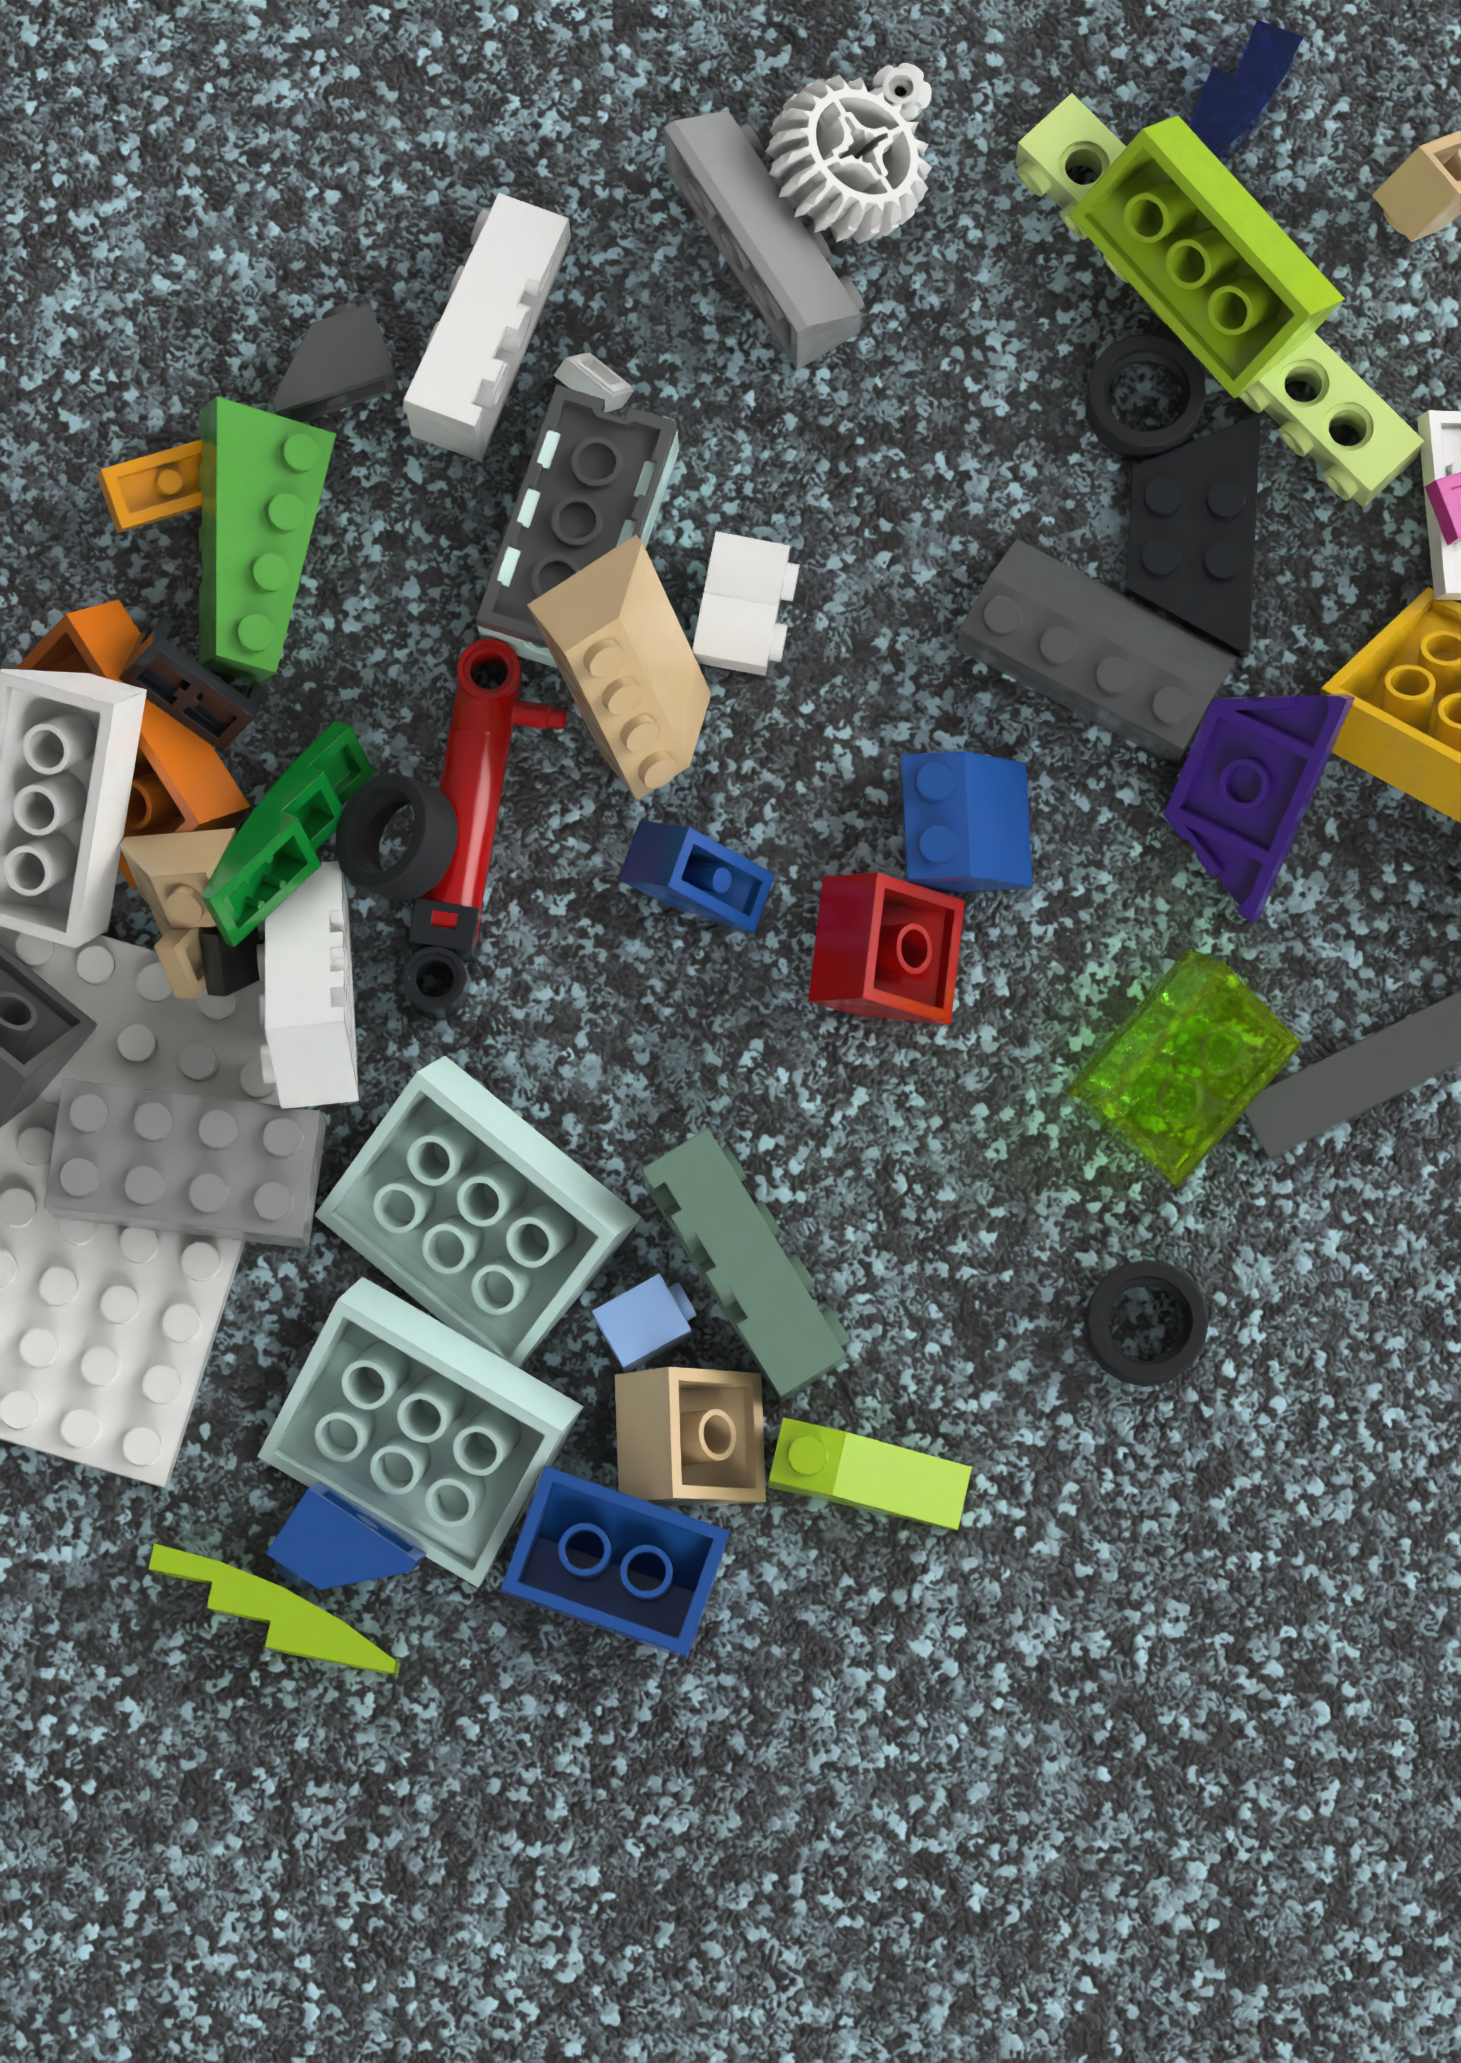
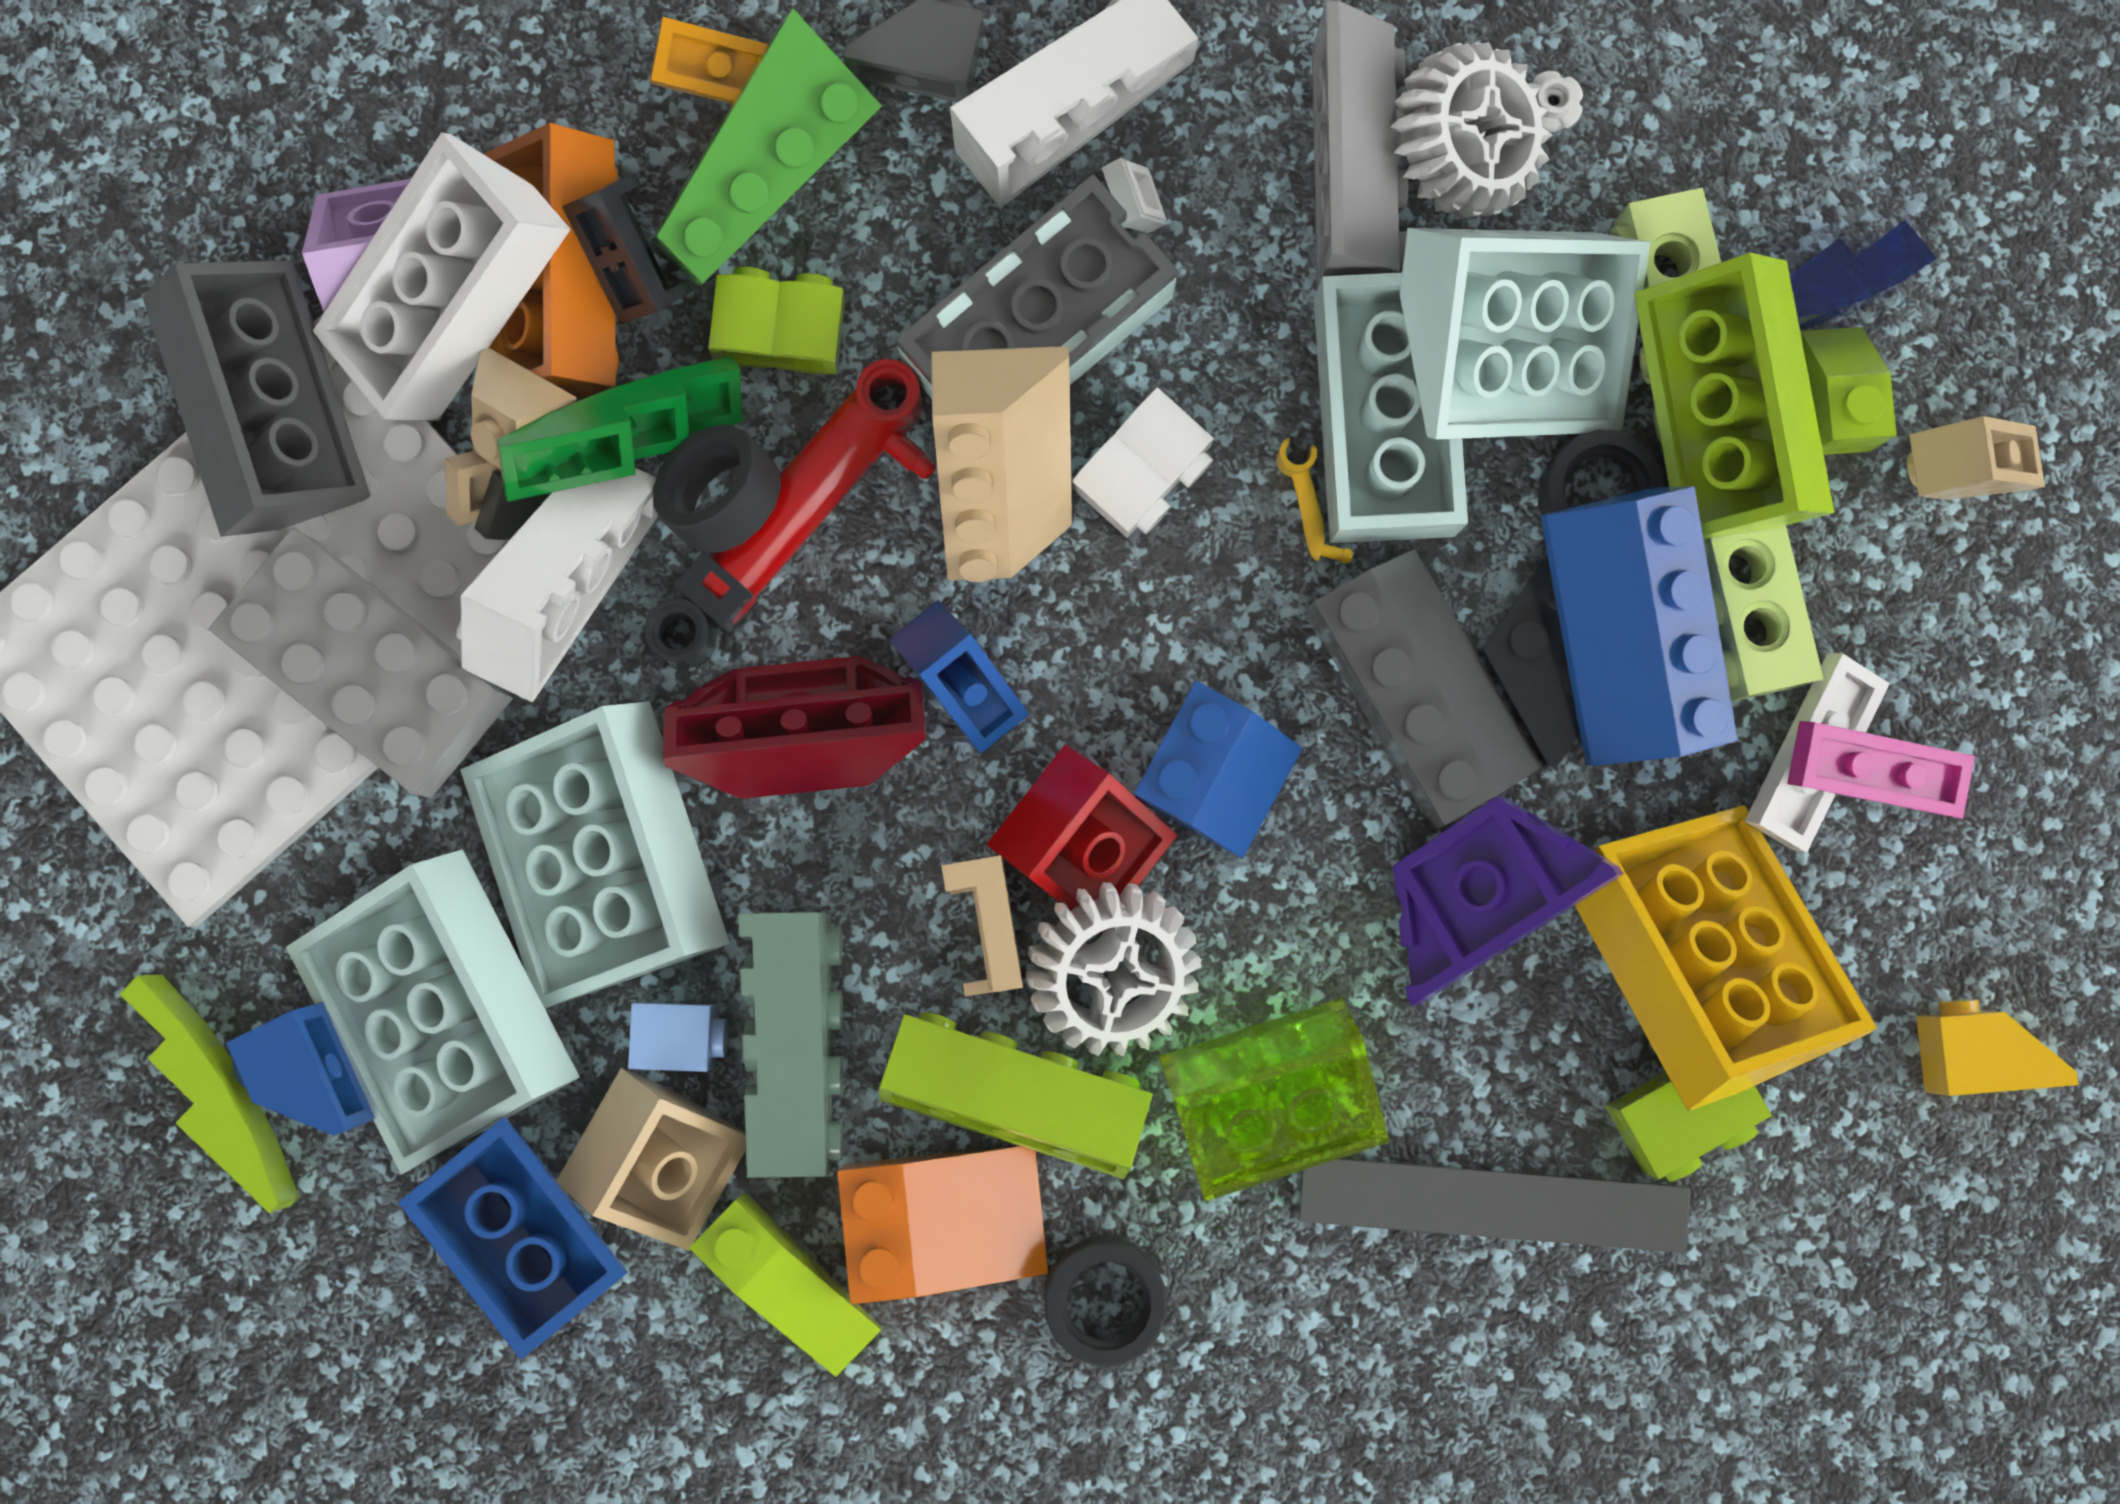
camera: 25 degrees right, 5 degrees up
(354, 670) = (777, 322): none -> lime brick
(588, 998) = (795, 727): none -> dark red wedge
(857, 1056) = (995, 921): none -> tan piece
(903, 554) = (1309, 506): none -> yellow piece
(922, 432) = (1378, 462): none -> light aqua brick
(964, 1195) = (1015, 1095): none -> lime brick
(966, 1340) = (941, 1222): none -> slope
(970, 1017) = (1108, 1016): none -> white gear
(994, 300) = (1521, 329): none -> light aqua slope
(1244, 489) = (1639, 626): none -> blue slope
(1297, 190) = (1849, 390): none -> lime slope

